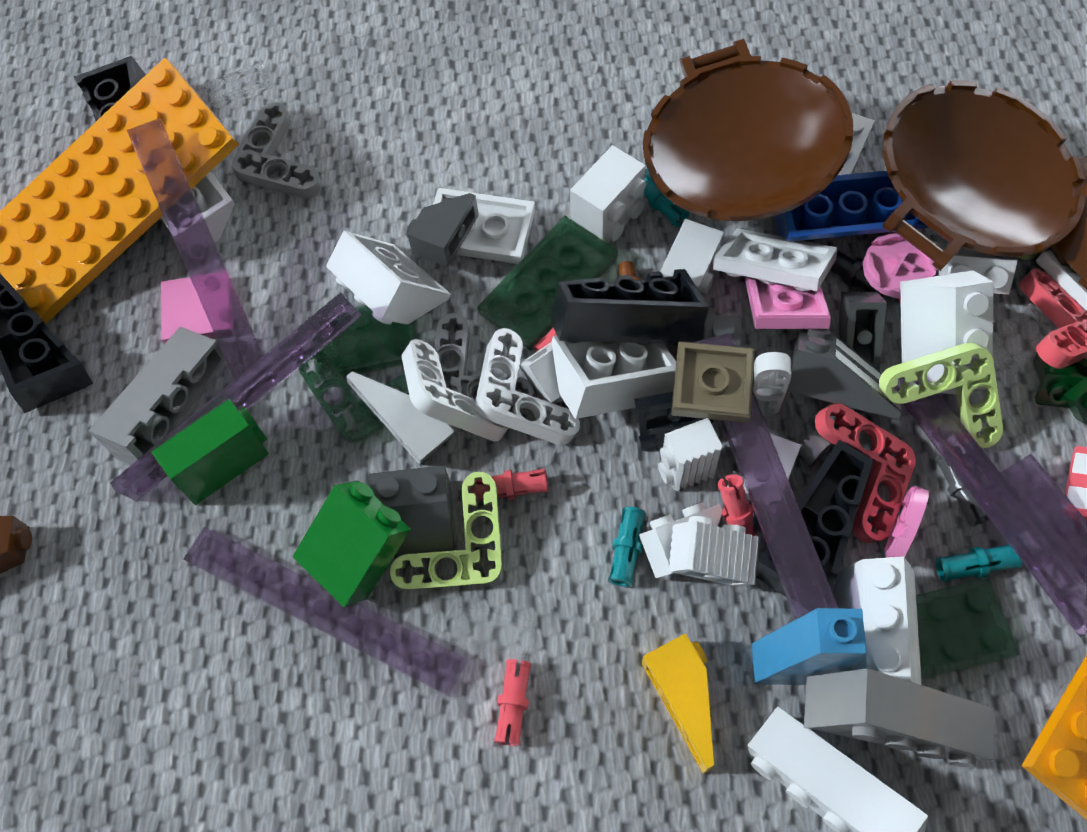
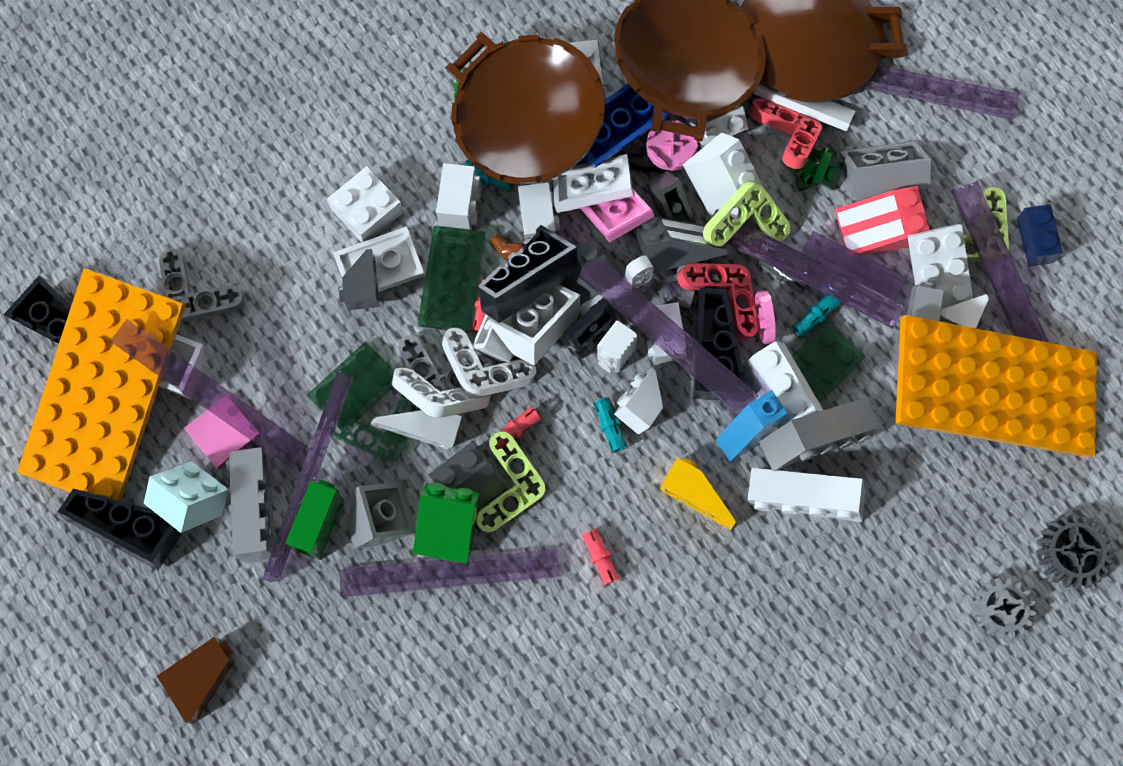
camera: 35 degrees left, 10 degrees up
(97, 344) = (185, 496): none -> light aqua brick
(286, 488) = (378, 515): none -> light grey slope
(384, 279) = (345, 340): white slope -> none
(505, 158) = (365, 205): none -> white brick
(713, 382) = (607, 295): dark tan tile -> none
(714, 552) = (666, 401): white brick -> none
(736, 507) = (665, 366): coral pin -> none

